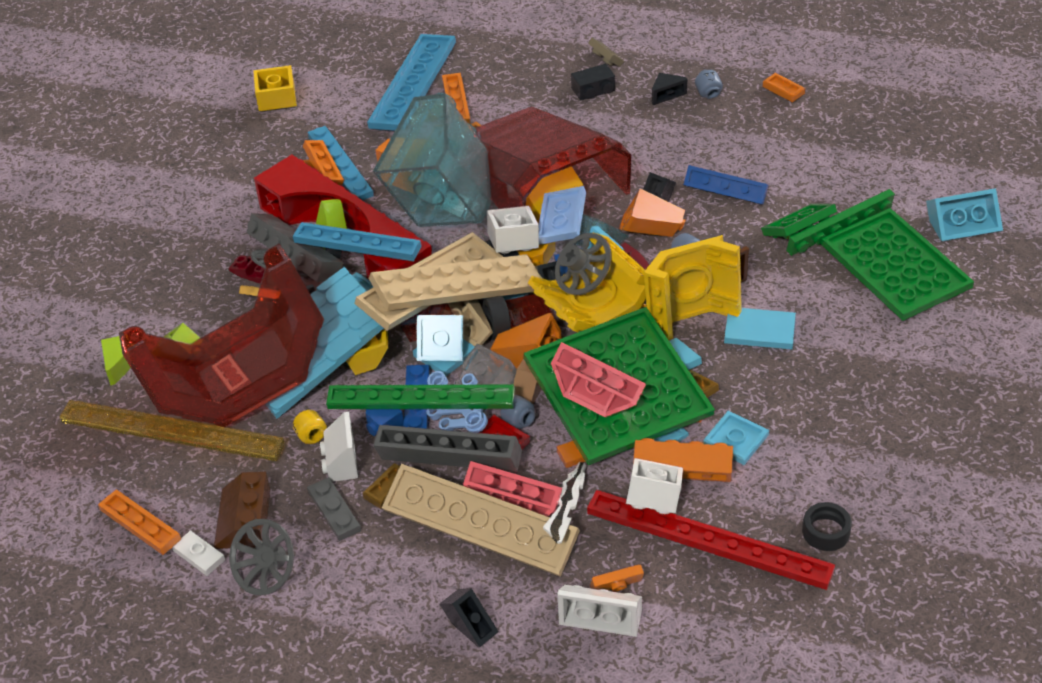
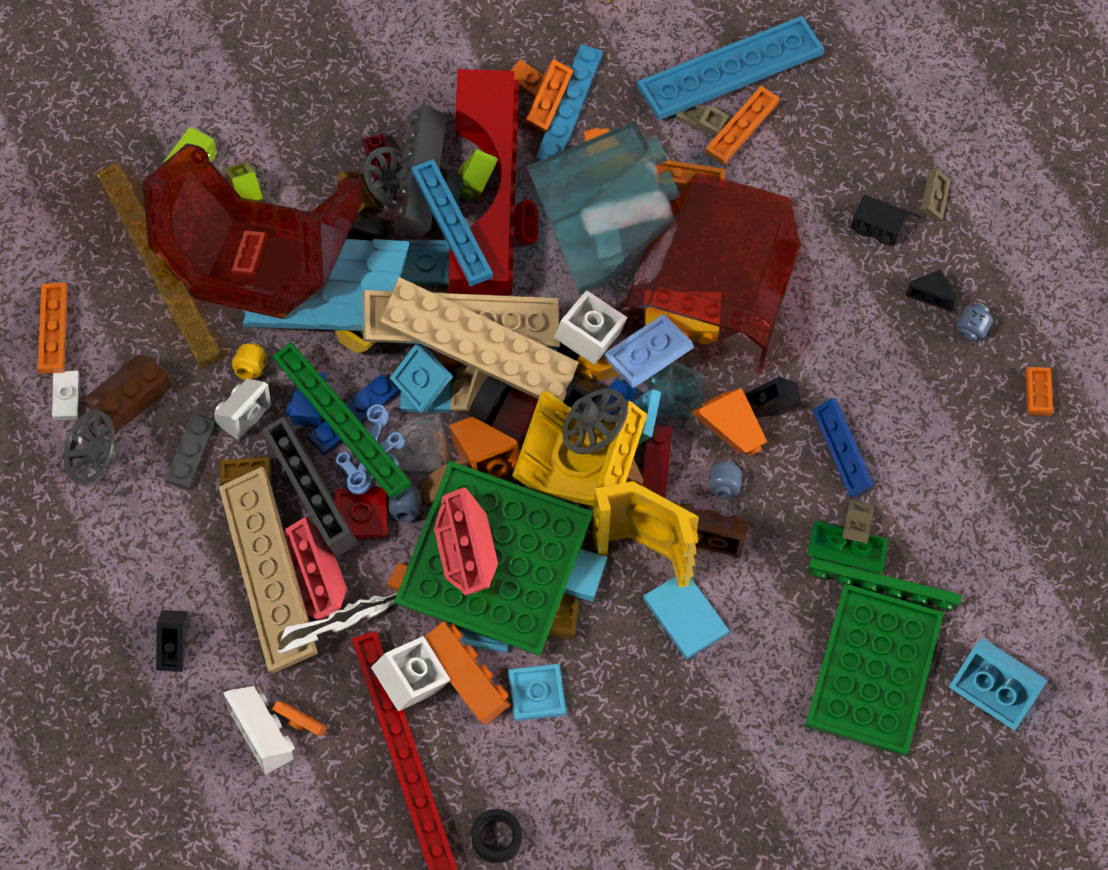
camera: 40 degrees right, 20 degrees up
(784, 208) = (858, 521): none -> dark tan slope

